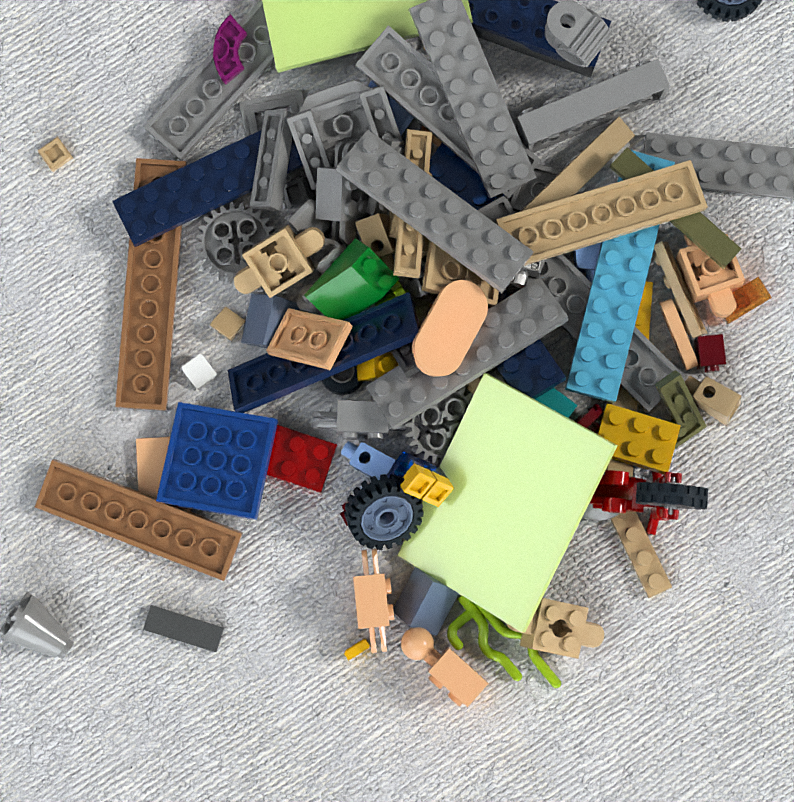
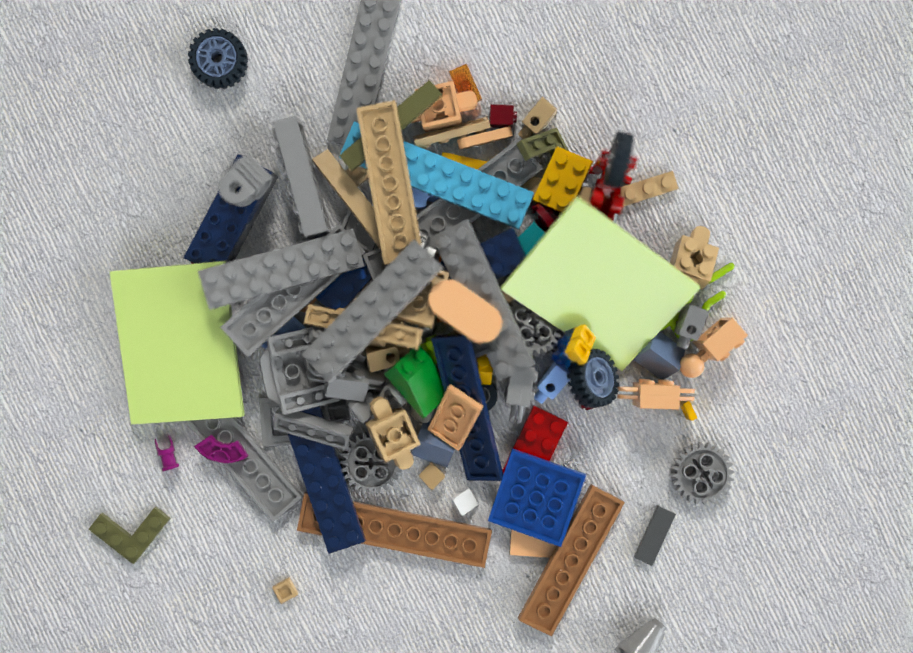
camera: 85 degrees left, 5 degrees up
(260, 662) = (688, 483): none -> light grey gear
(483, 631) = (695, 318): none -> light grey torso
(605, 176) = (358, 175): none -> tan tile

